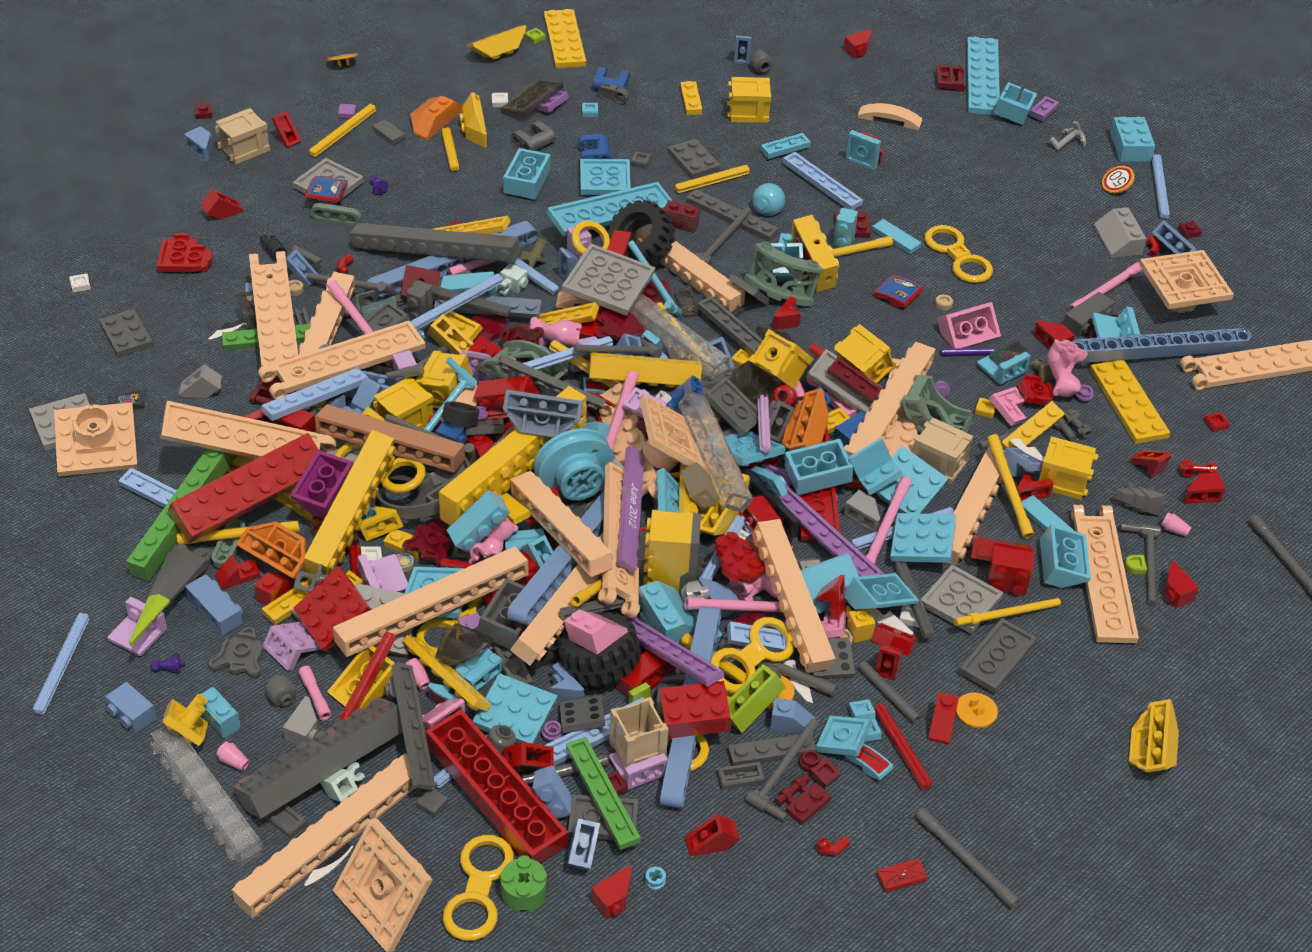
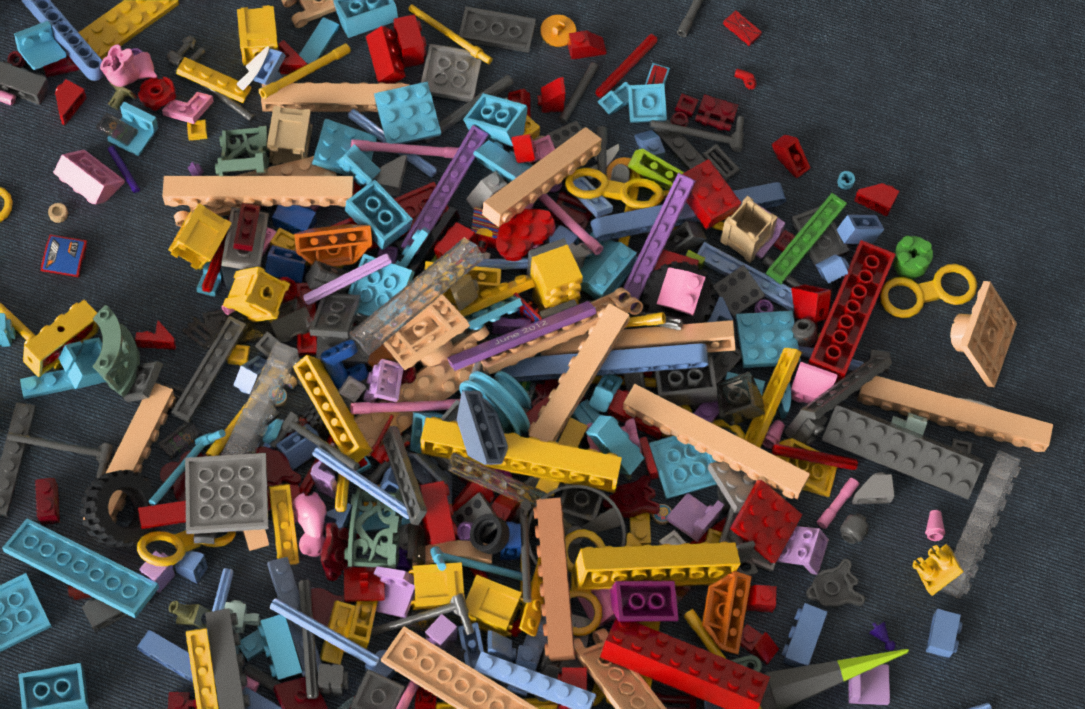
camera: 120 degrees left, 20 degrees up
(220, 713) = (907, 554): medium azure brick -> none
(282, 606) = (769, 578): yellow plate -> none

